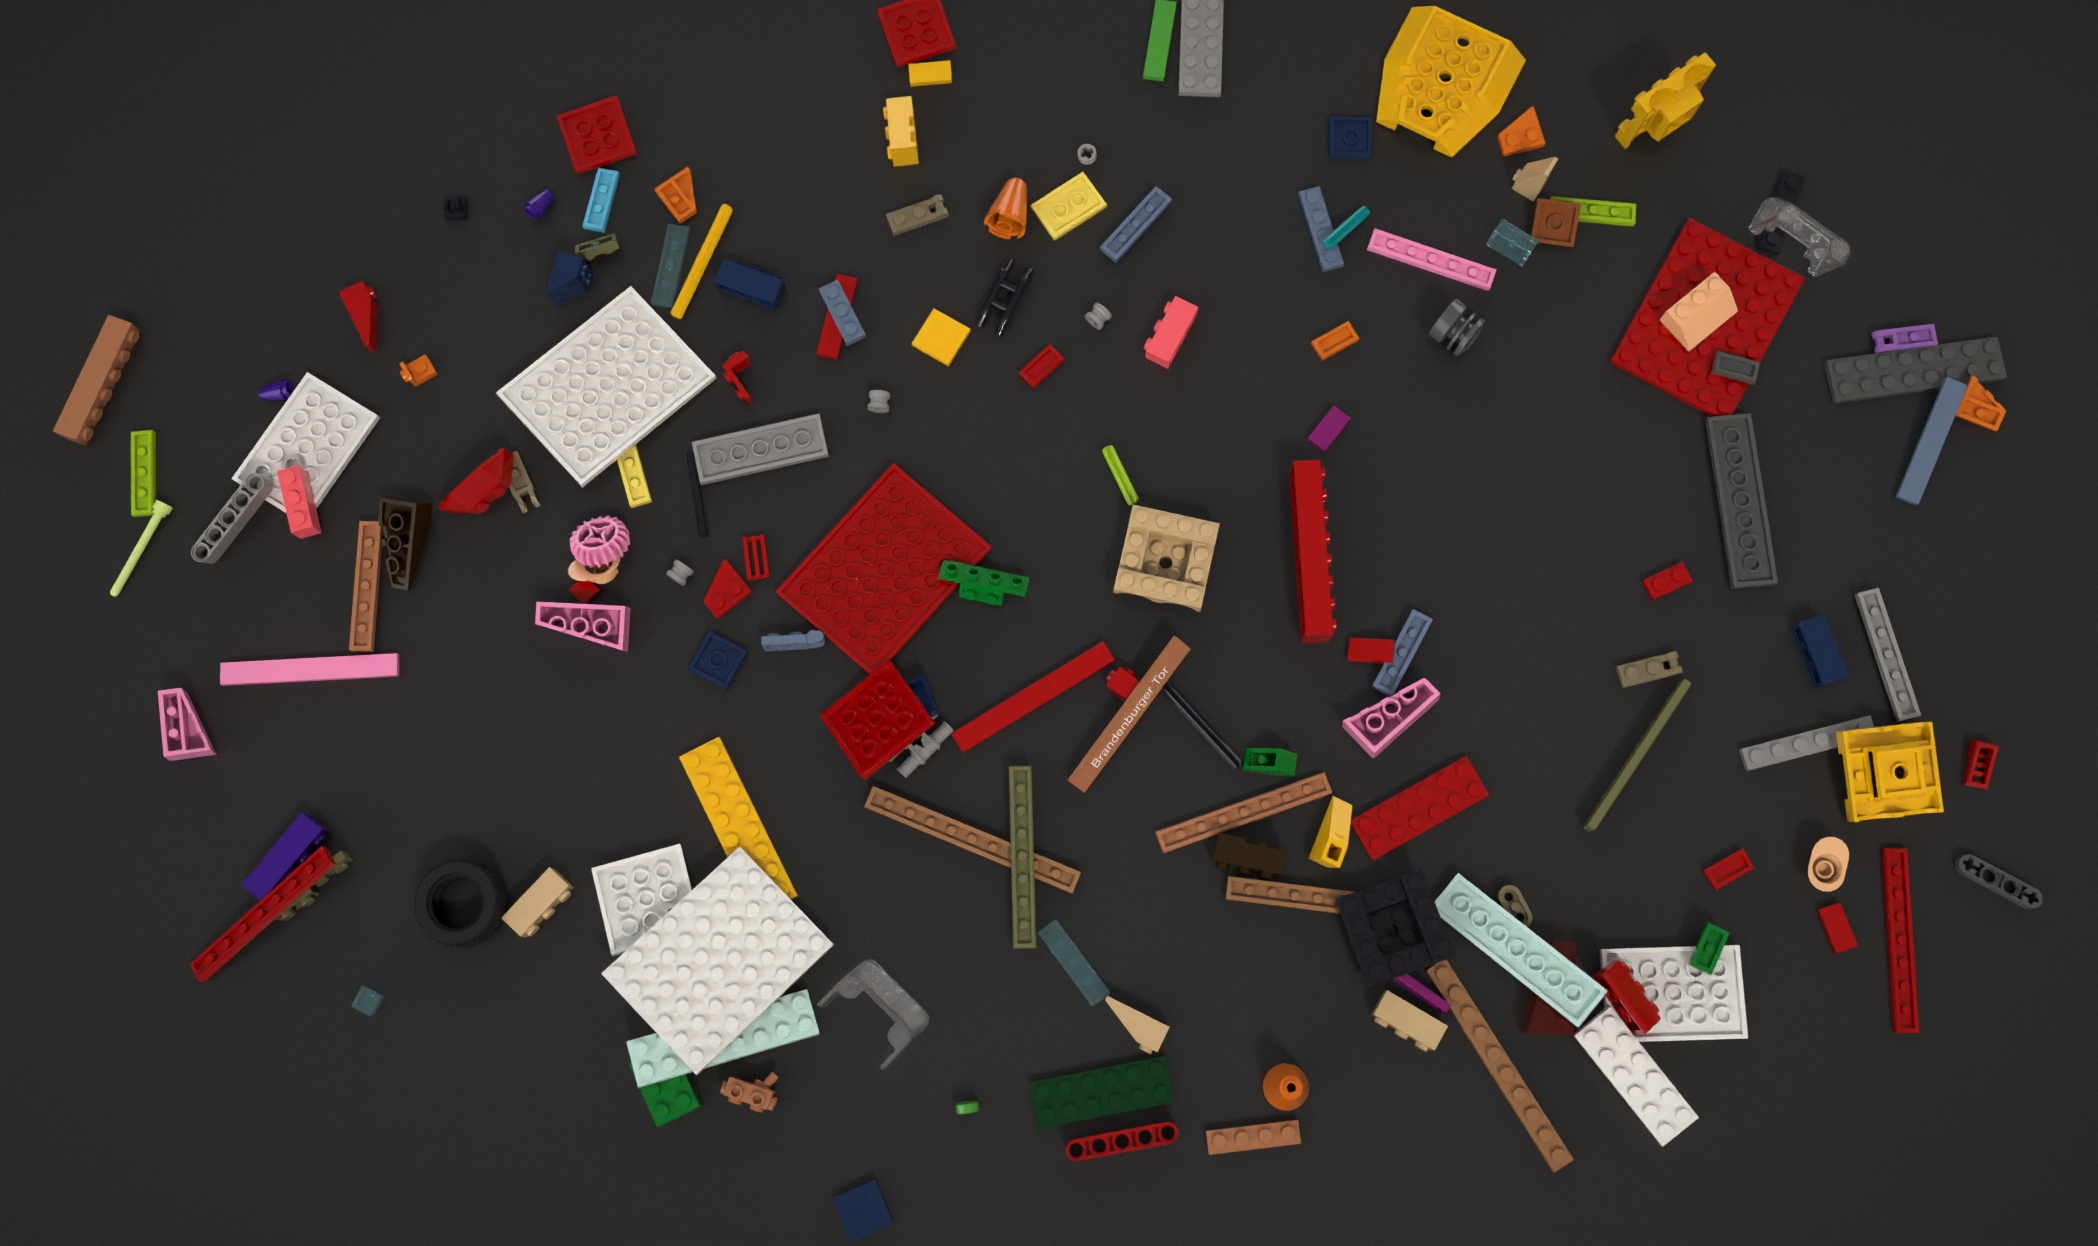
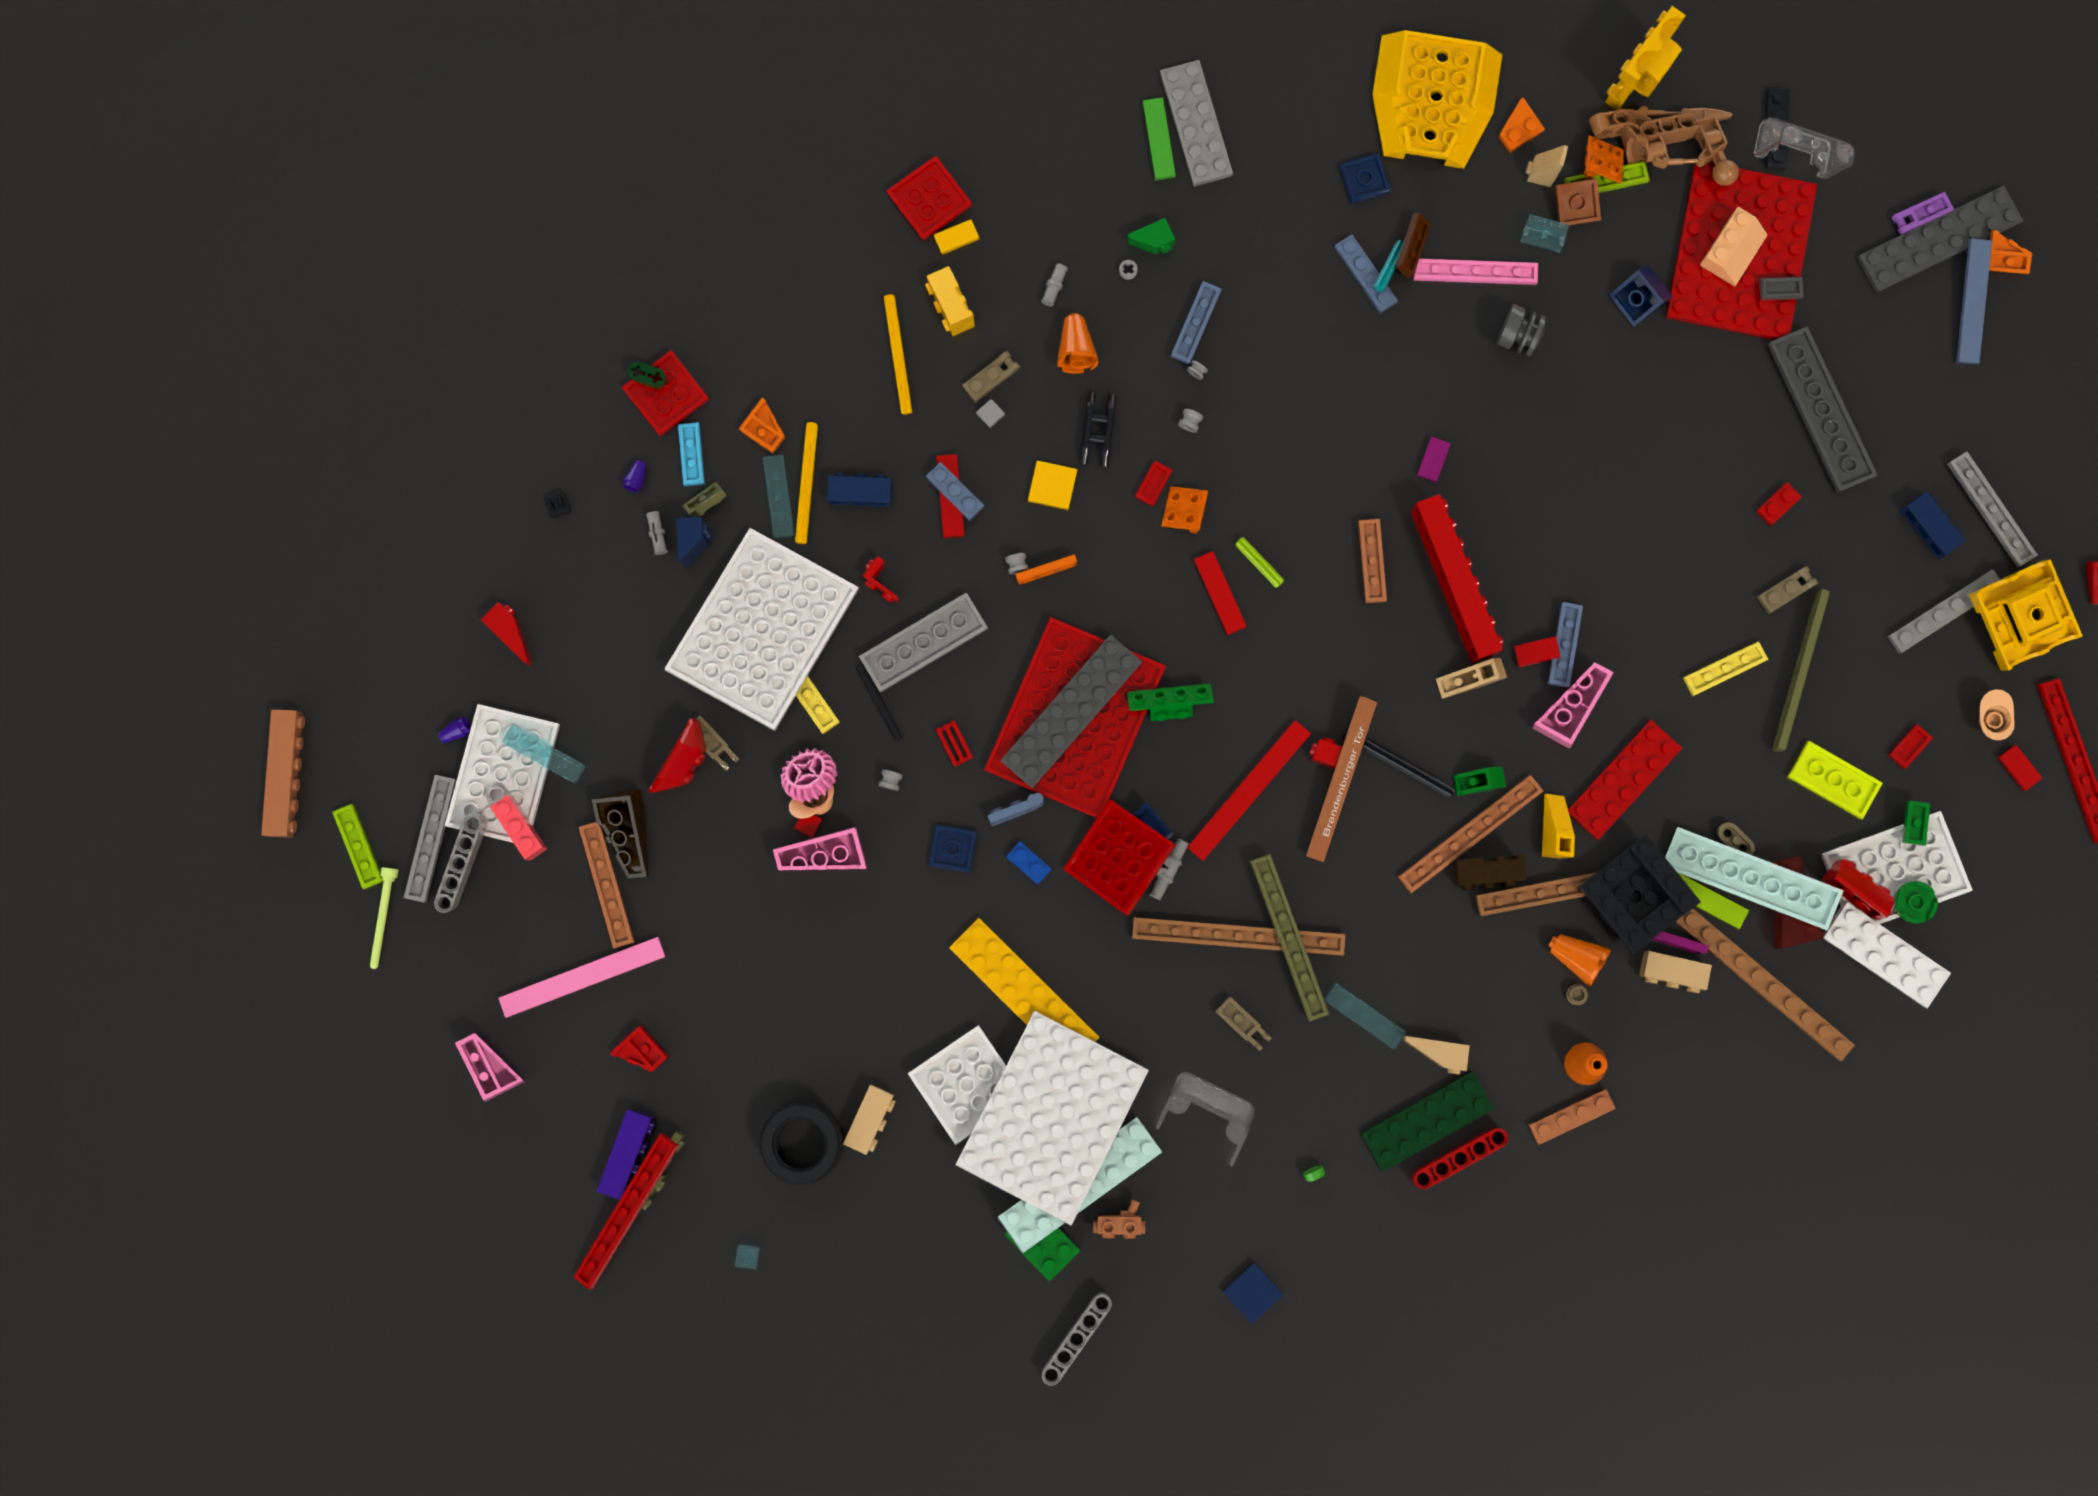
camera: 20 degrees left, 5 degrees up
(212, 488) = (430, 839): none -> light grey plate
(339, 759) = (641, 1050): none -> red wing
(351, 439) = (543, 754): none -> clear light blue tile
(418, 370) = (579, 669): orange bracket -> none
(539, 263) = (656, 533): none -> light grey pin
(581, 115) = (648, 371): none -> dark green beam
(655, 1201) = (1072, 1348): none -> light grey beam
(725, 591) = (937, 783): red wing -> none
(788, 698) = (1028, 863): none -> blue plate
(834, 166) = (898, 355): none -> yellow axle
(881, 561) = (1071, 711): none -> dark grey plate
(894, 416) = (1046, 569): none -> orange tile
(904, 250) = (990, 413): none -> light grey tile
(945, 927) = (1241, 1022): none -> dark tan hinge
(1009, 146) = (1054, 285): none -> light grey pin
(1063, 400) = (1184, 509): none -> orange hinge
(1068, 206) = (1127, 324): light yellow tile -> none
(1070, 493) = (1220, 593): none -> red tile
(1121, 130) = (1153, 238): none -> green slope
(1121, 269) = (1197, 370): none -> light grey bush
(1170, 331) = (1261, 414): coral brick -> none
(1181, 539) = (1320, 605): tan piece -> none
(1234, 508) = (1372, 561): none -> nougat plate
(1296, 655) = (1471, 677): none -> tan slope
(1299, 1012) = (1577, 994): none -> dark tan plate
(1314, 973) = (1579, 956): none -> orange cone
(1335, 341) = (1412, 375): orange tile -> none
(1376, 214) = (1413, 245): none -> reddish brown plate
(1473, 965) = (1717, 905): none -> lime tile
(1560, 729) = (1725, 668): none -> light yellow tile
(1590, 332) = (1640, 295): none -> dark blue slope
(1594, 189) = (1603, 160): none -> orange hinge
(1638, 878) = (1834, 780): none -> neon yellow tile
(1645, 181) = (1647, 138): none -> medium nougat piece
(1683, 1031) = (1915, 902): none -> green tile

